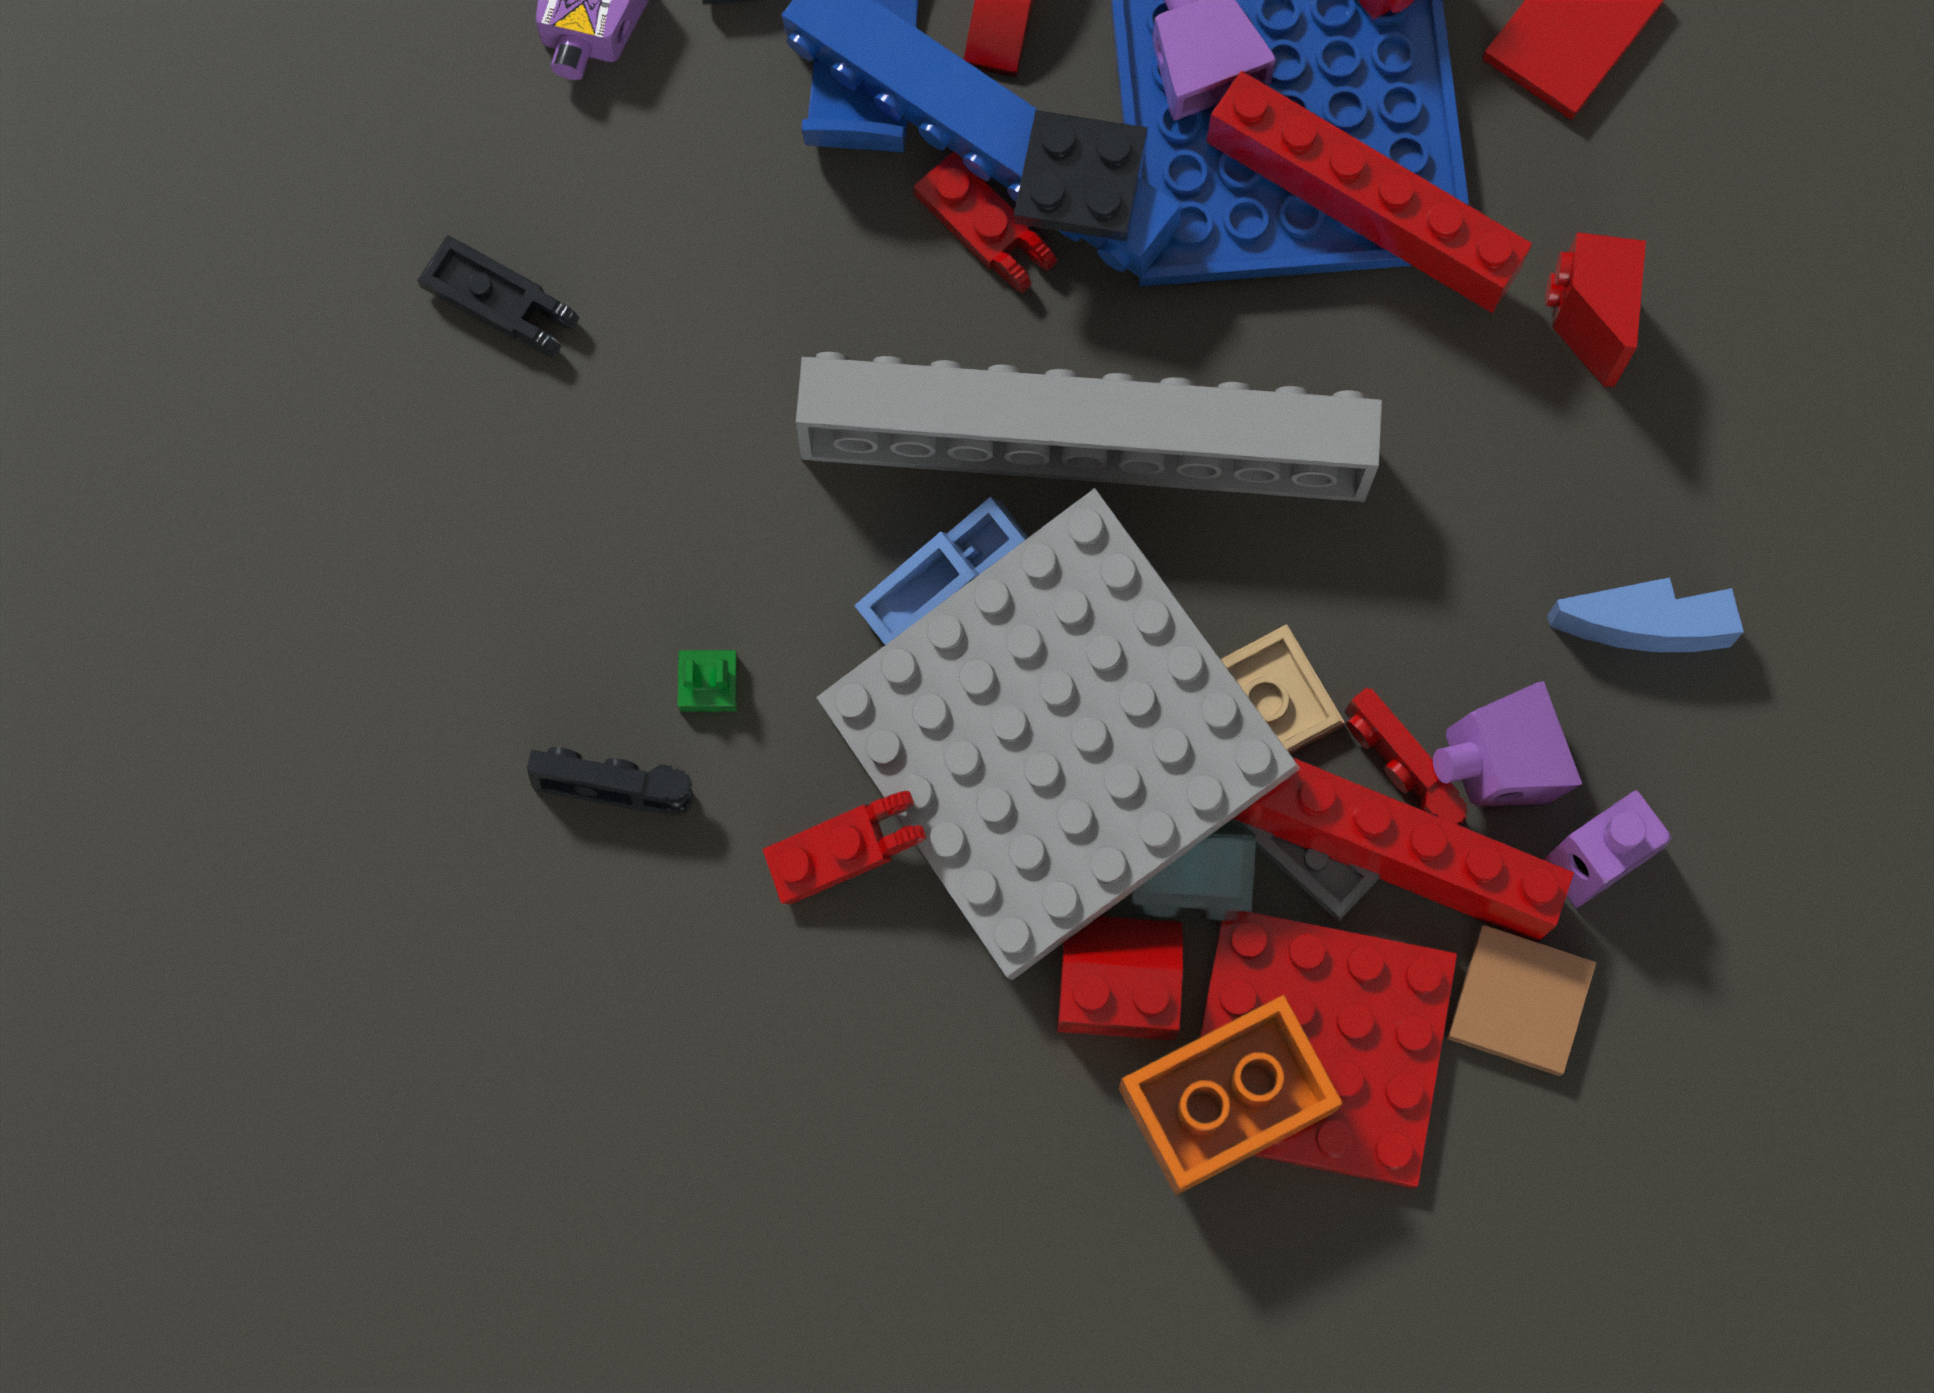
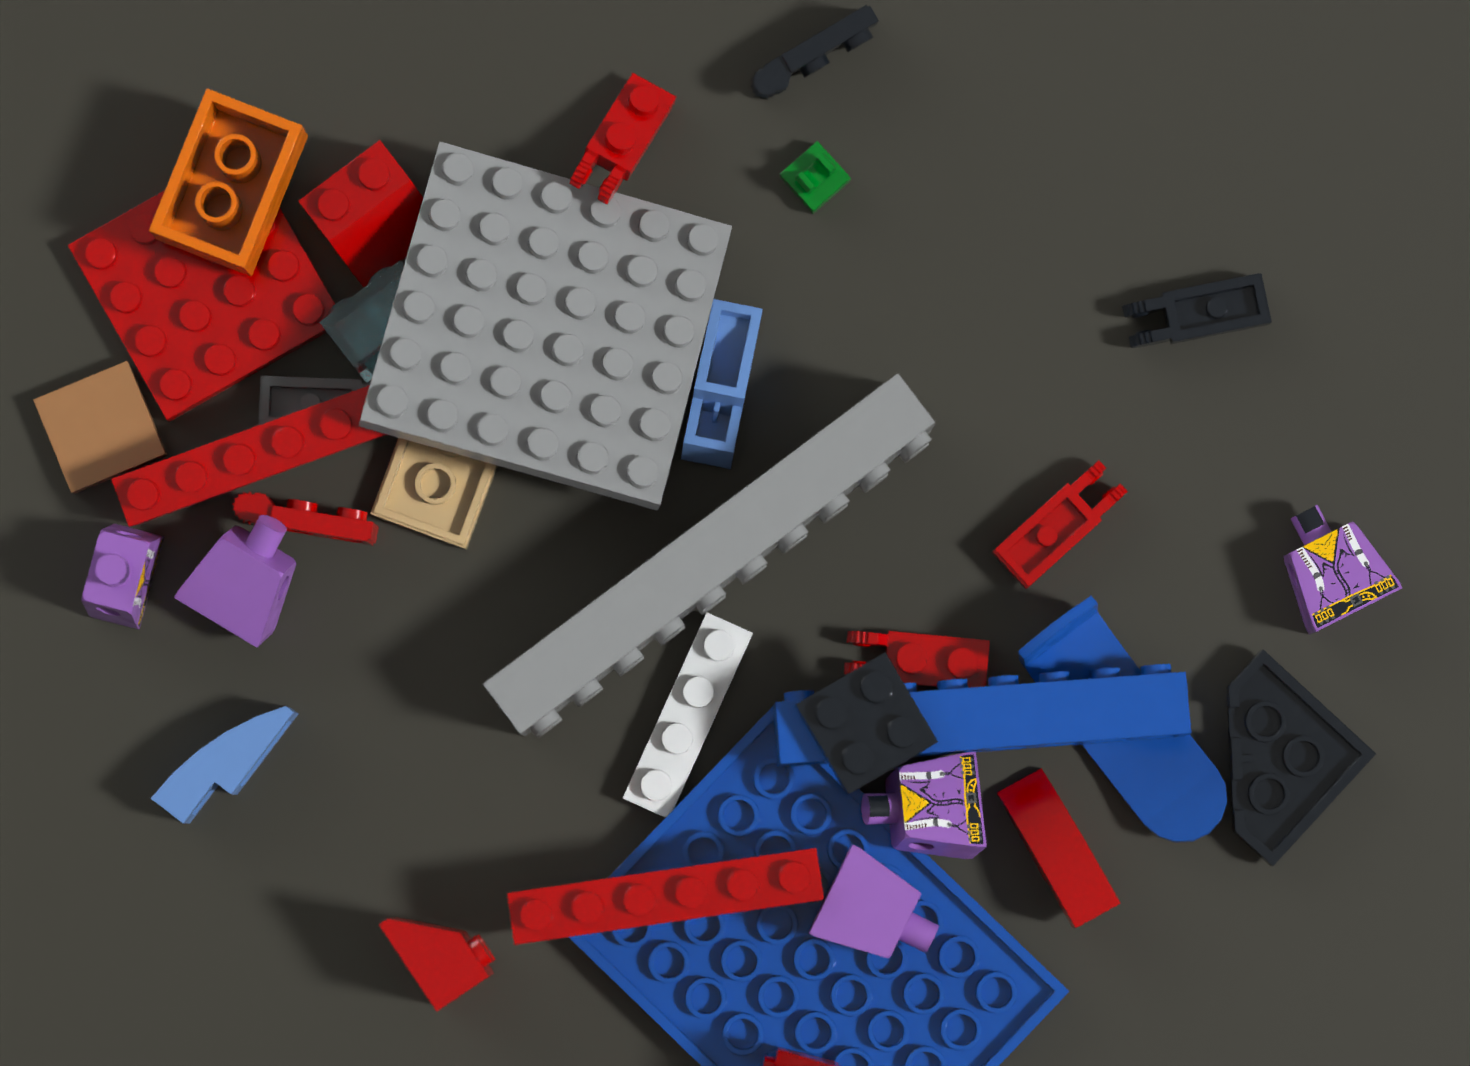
camera: 135 degrees right, 10 degrees up
(773, 227) = (1054, 528): none -> red hinge
(1083, 79) = (932, 807): none -> medium lavender torso
(1224, 332) = (687, 715): none -> white plate

